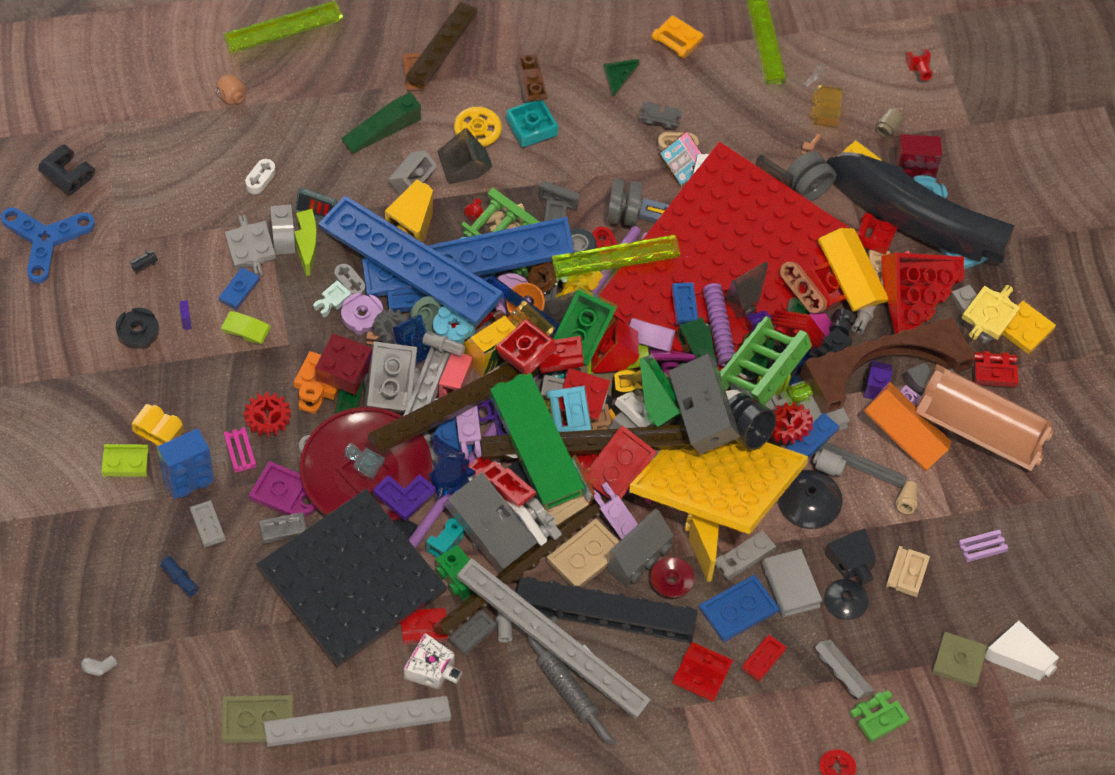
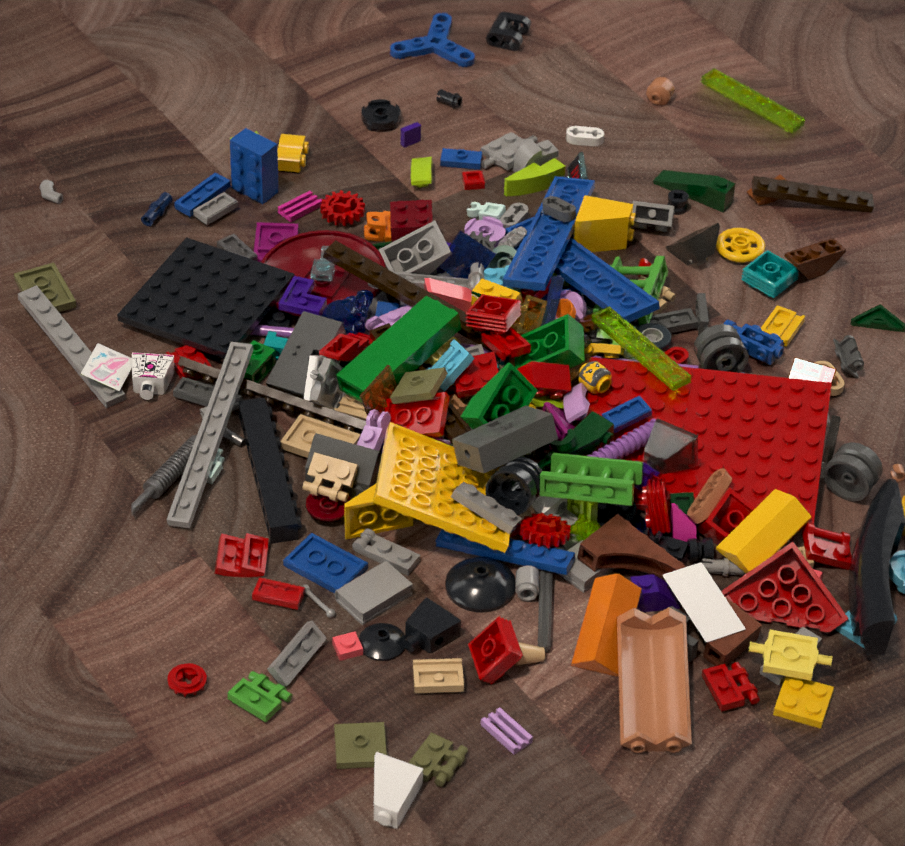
camera: 70 degrees right, 15 degrees down
(180, 527) = (202, 193): none -> blue plate
(275, 291) = (473, 180): none -> red tile
(386, 239) = (559, 209): none -> dark grey beam
(396, 152) = (679, 200): none -> black wheel
(407, 697) = (108, 367): none -> white sticker
(409, 292) = (514, 237): none -> light grey gear
(594, 443) = (418, 385): none -> olive plate
(598, 145) = (783, 323): none -> yellow plate
(622, 167) = (759, 343): none -> blue brick
(632, 306) = (595, 377): none -> yellow head
(651, 555) = (332, 470): none -> tan plate
(759, 454) = (486, 507): none -> light grey plate
(799, 626) = (329, 612): none -> light grey hinge
(844, 627) = (347, 646): none -> coral plate
(917, 345) = (704, 602): none -> white sticker
(917, 524) = (495, 650): none -> red brick
(992, 613) = (433, 753): none -> olive plate

